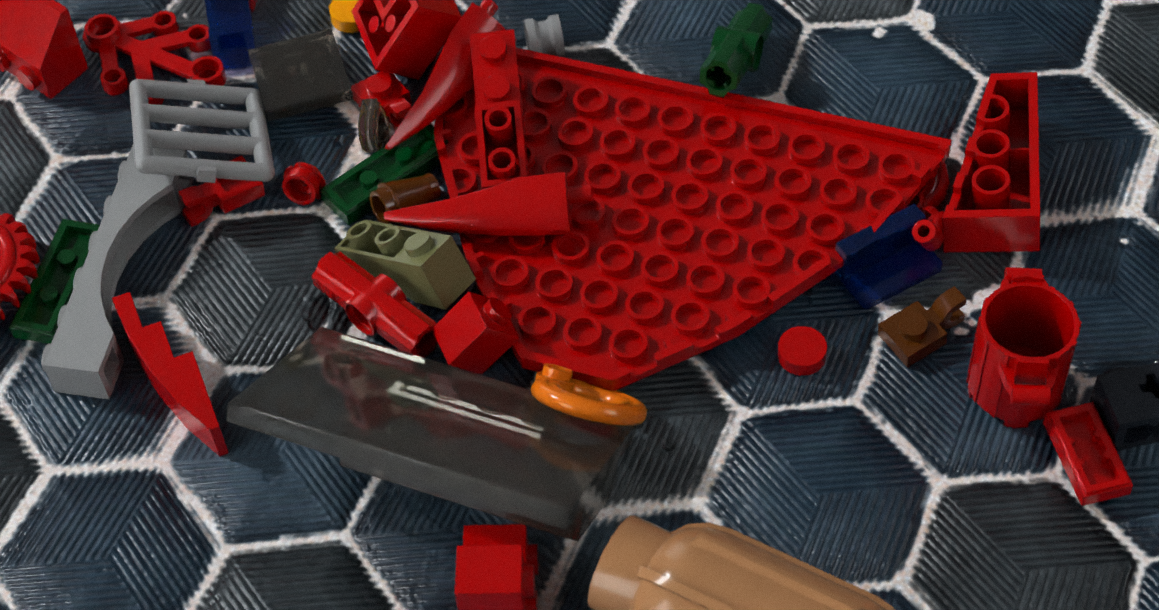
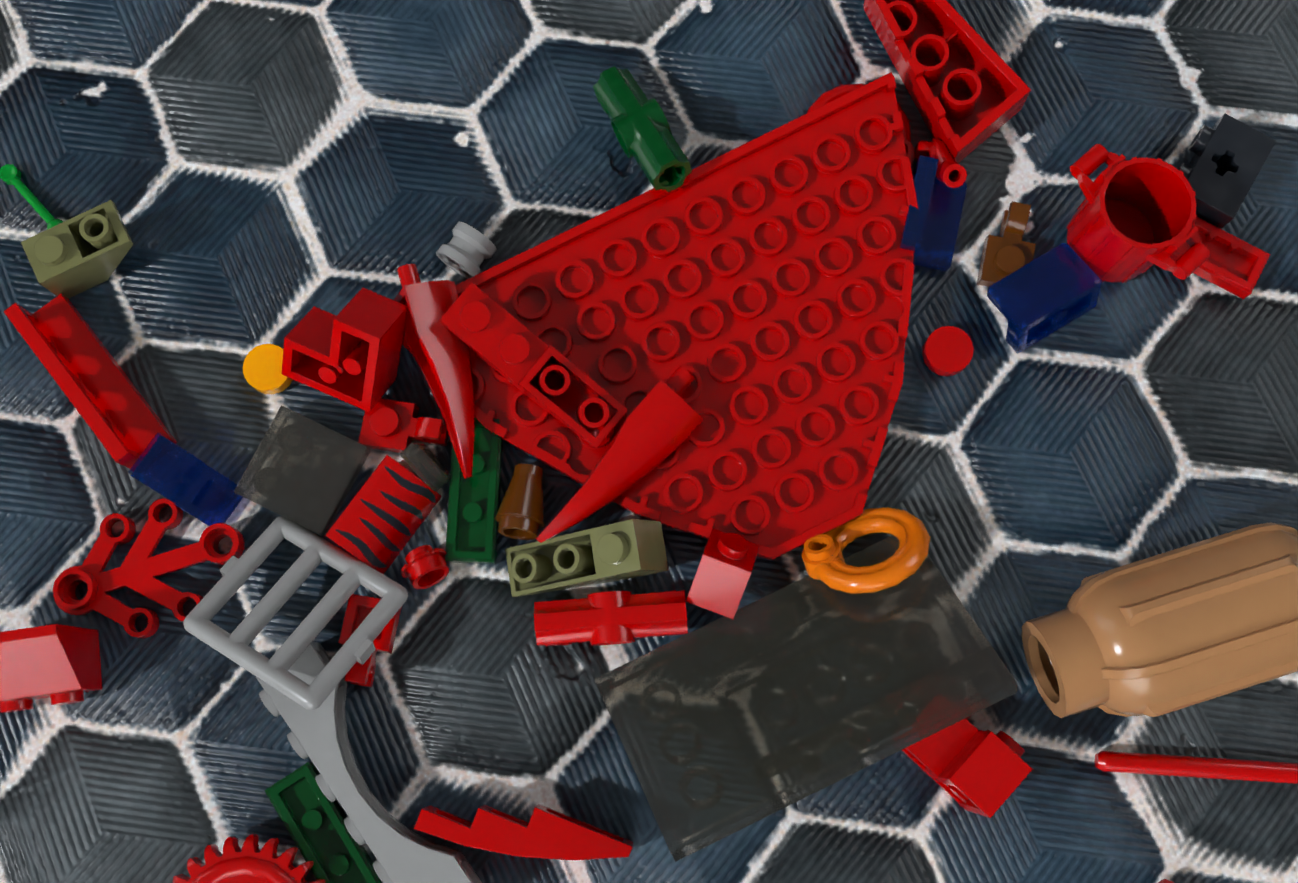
camera: 50 degrees left, 25 degrees up
(315, 132) = (384, 515): none -> red brick
(911, 370) = (1045, 296): none -> clear blue panel

